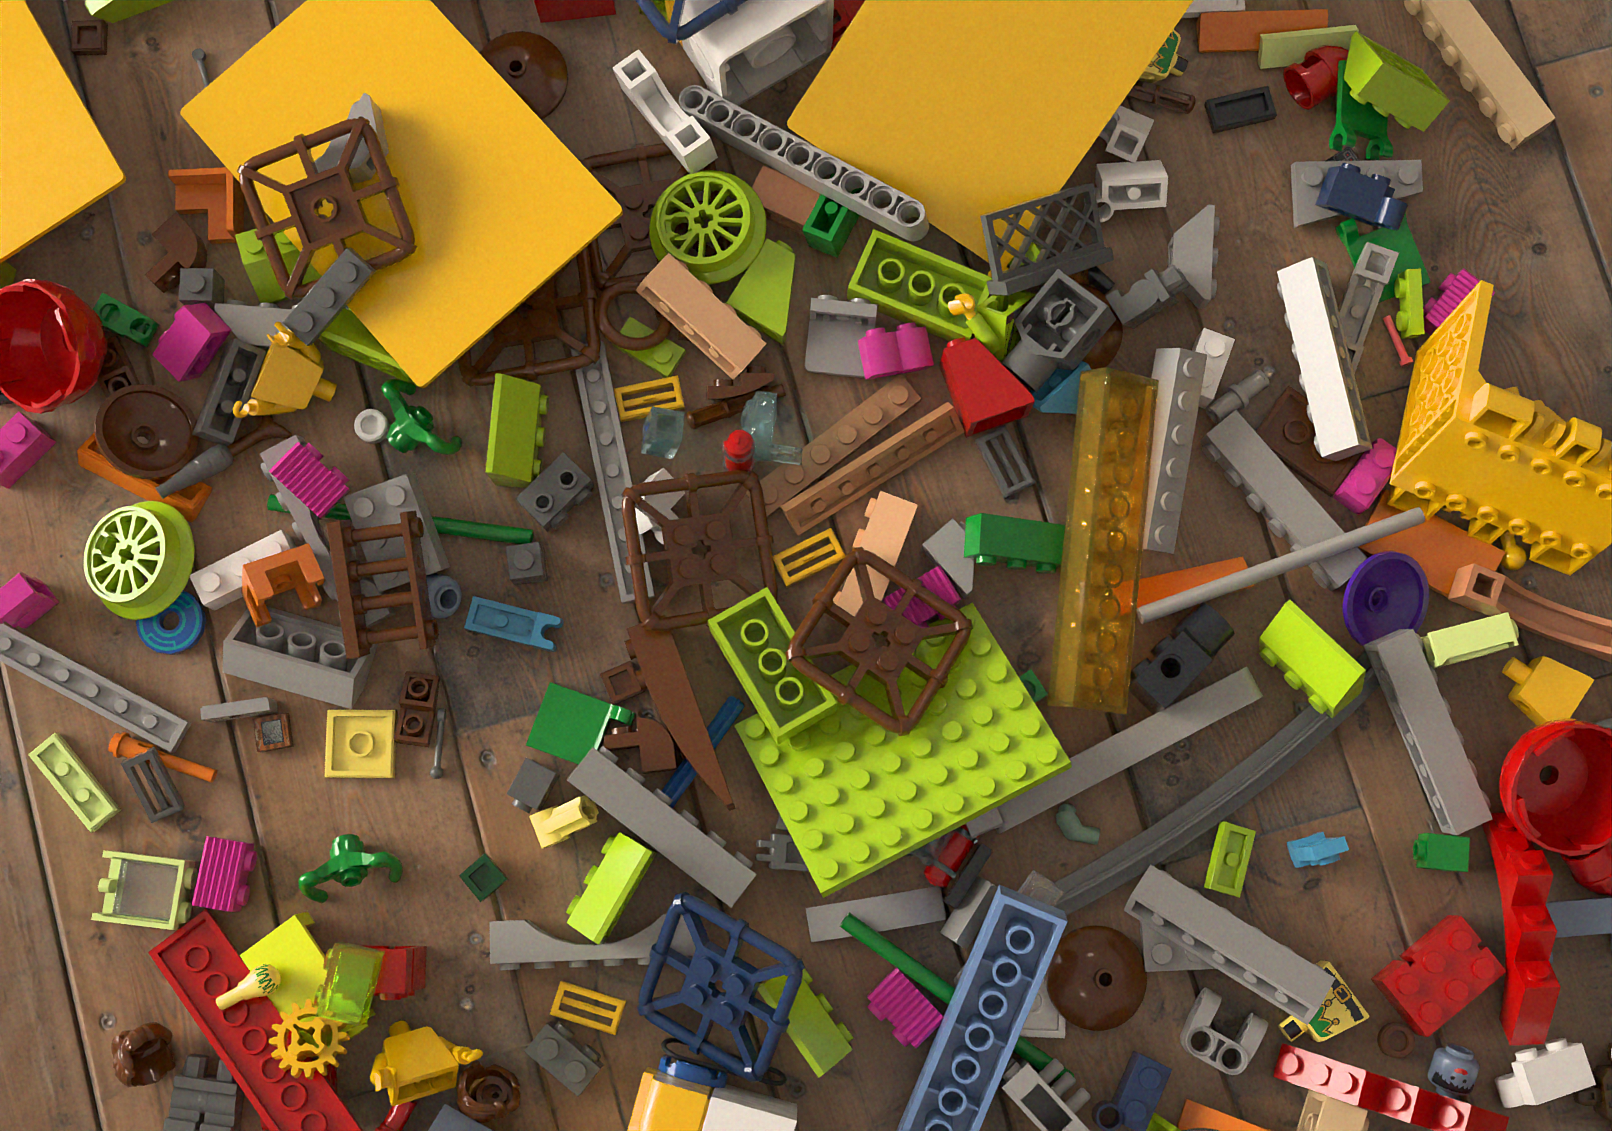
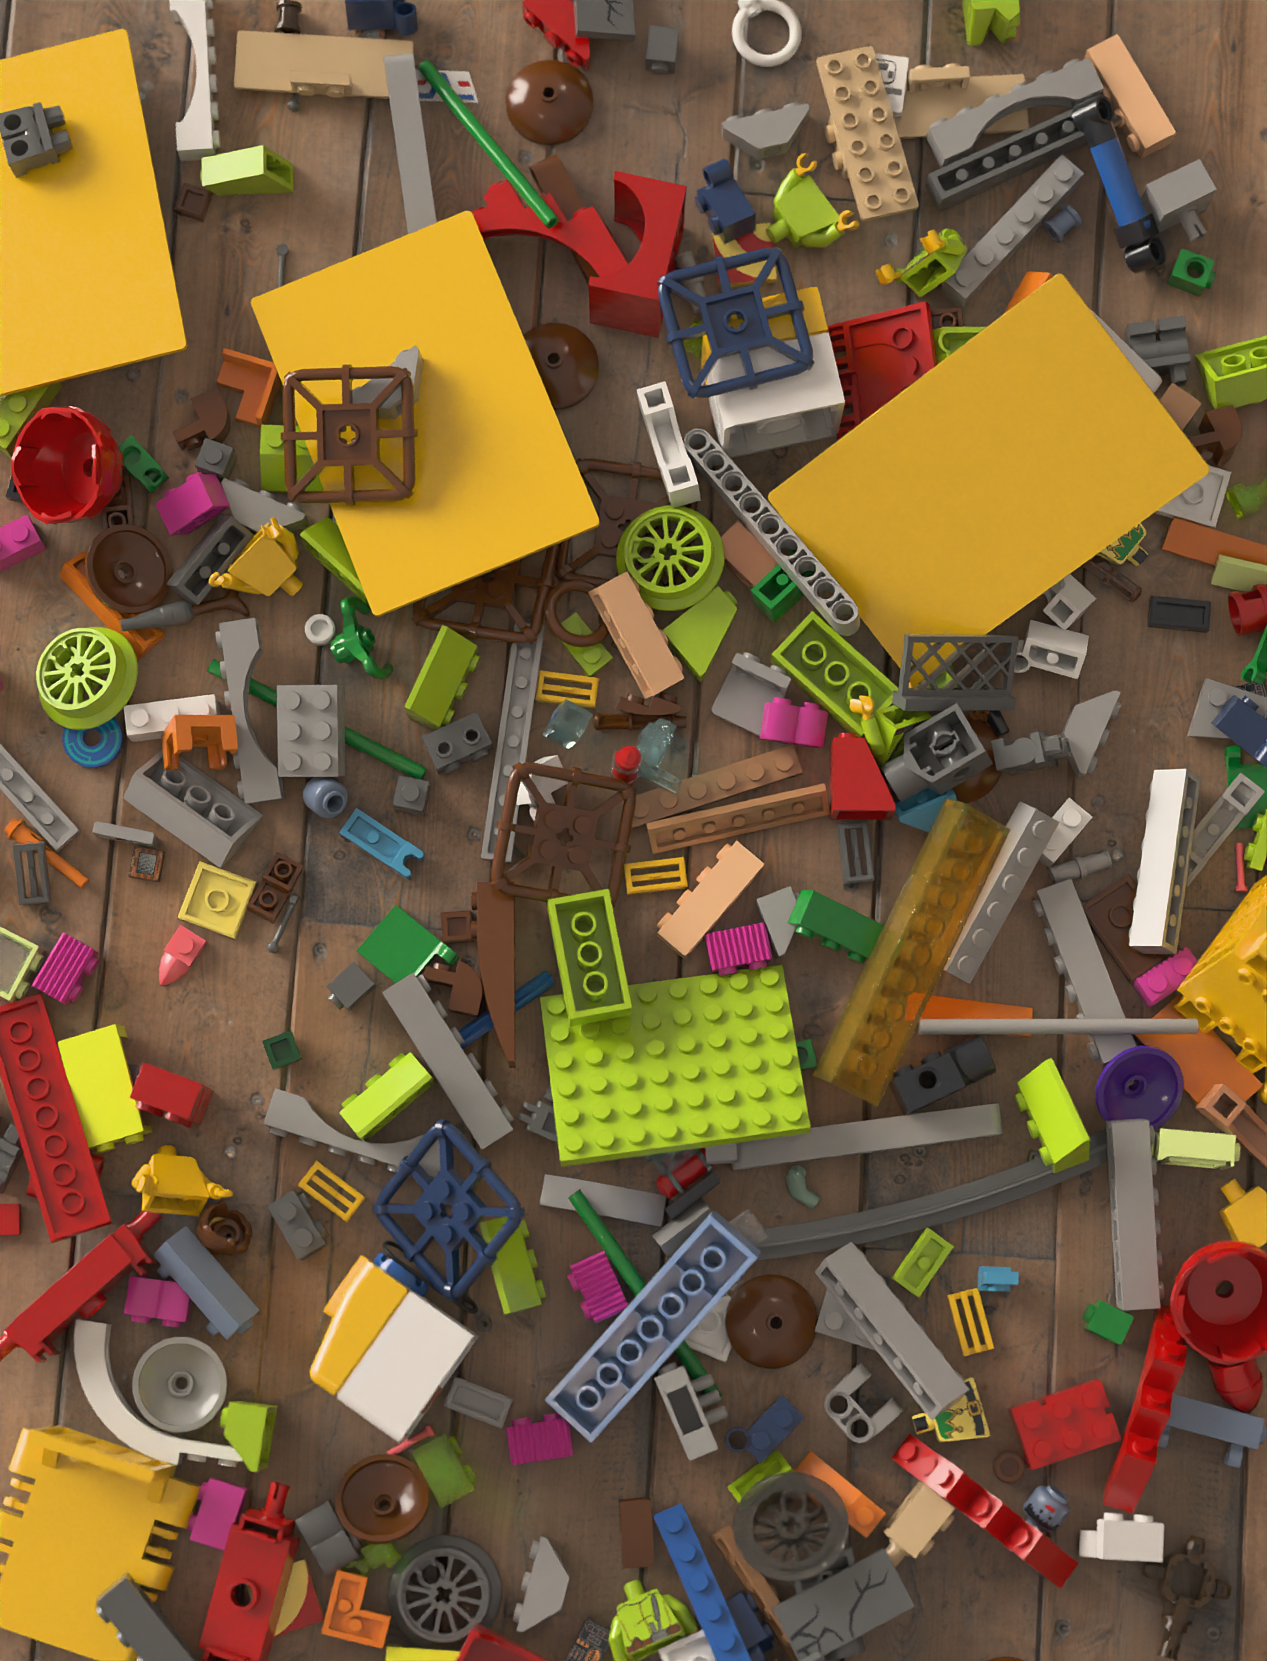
camera: 20 degrees right, 0 degrees up
(258, 983) = (69, 1069): light yellow piece -> none
(299, 1049) = (104, 1124): yellow gear -> none
(310, 479) = (254, 661): dark pink brick -> none
(329, 296) = (324, 510): dark grey plate -> none
(341, 812) = (180, 955): none -> coral plate
(347, 866) = (172, 1000): green piece -> none
(348, 983) = (146, 1093): clear neon green brick -> none
(354, 604) = (260, 752): reddish brown fence -> none
(558, 822) = (359, 1026): light yellow piece -> none
(858, 646) = (707, 970): reddish brown plate -> none
(1318, 927) = (982, 1320): none -> yellow tile

